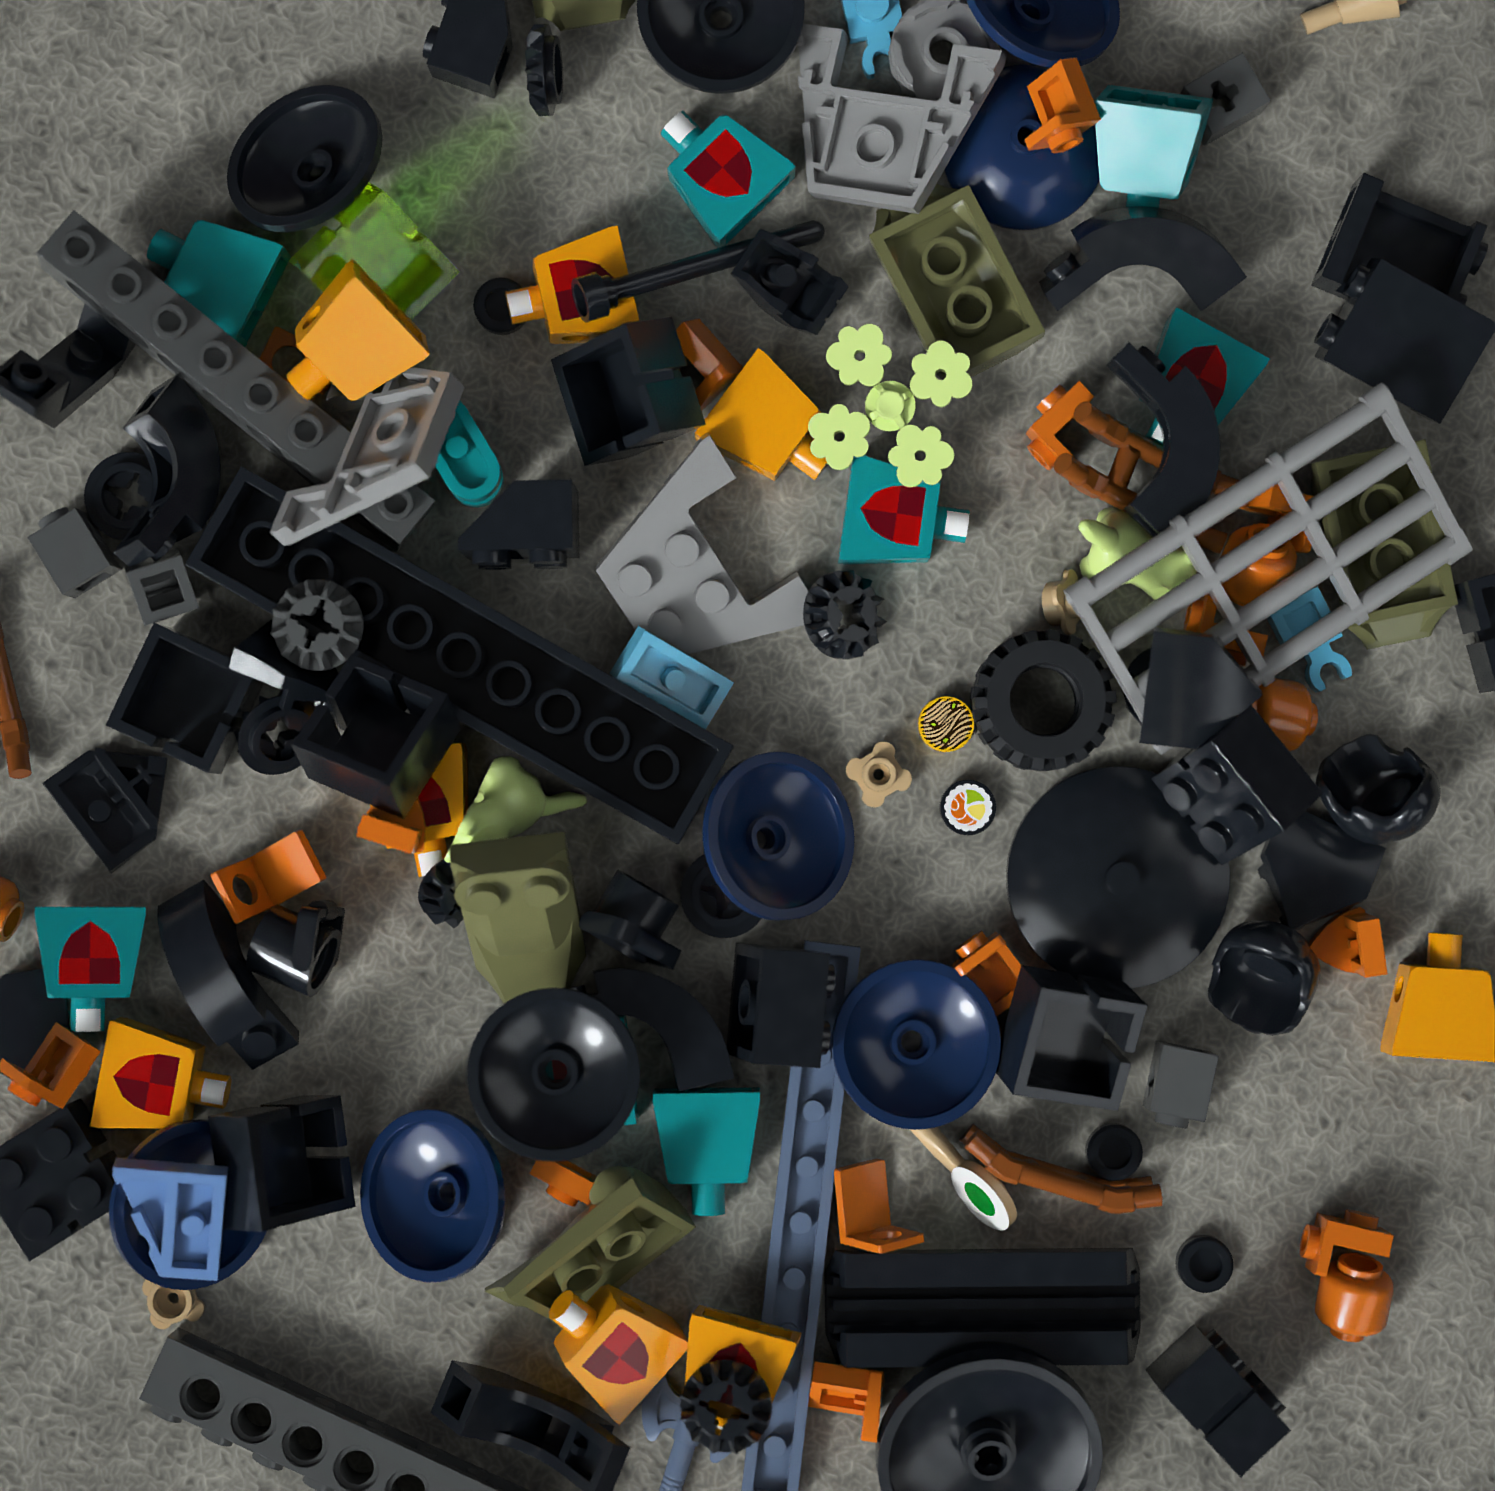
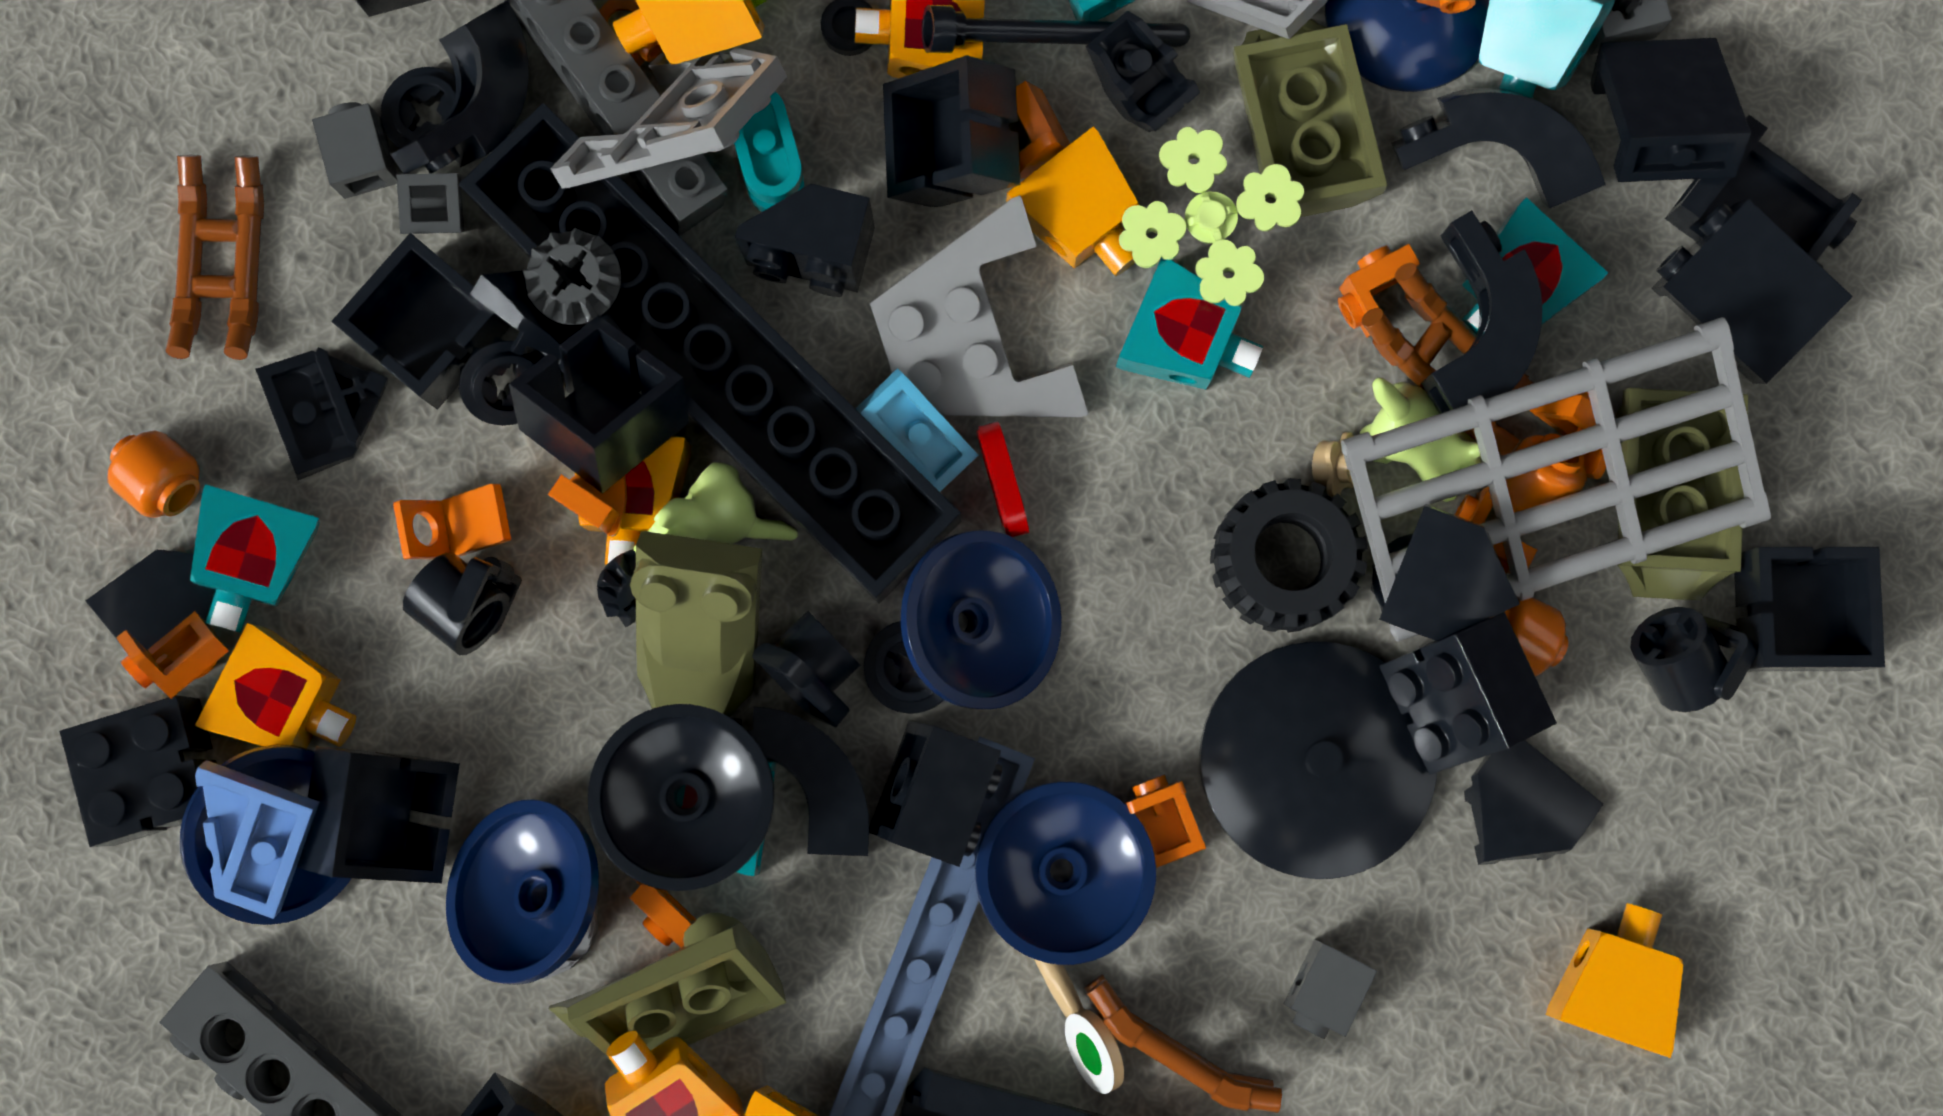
camera: 15 degrees right, 5 degrees down
(165, 1312) = (218, 942): tan plate -> none
(214, 977) = (367, 613): black arch -> none
(707, 1140) = (822, 915): teal torso -> none
(762, 699) = (1002, 479): none -> red tile
(823, 616) = (1087, 411): black gear -> none
(865, 1209) = (967, 1033): orange bracket -> none
(894, 776) = (1106, 572): tan plate -> none
(945, 724) = (1182, 556): tile -> none
(967, 807) = (1182, 646): tile -> none
(1057, 1040) = (1214, 905): black piece -> none
(1114, 1151) = (1241, 1043): black tile -> none
(1264, 977) = (1445, 902): black piece -> none
(1290, 187) = (1672, 109): none -> black panel
(1297, 617) = (1569, 539): medium azure plate -> none
(1352, 943) = (1544, 893): orange tile -> none
(1378, 790) = (1611, 741): black piece -> none
(1427, 701) = (1684, 659): none -> black piece

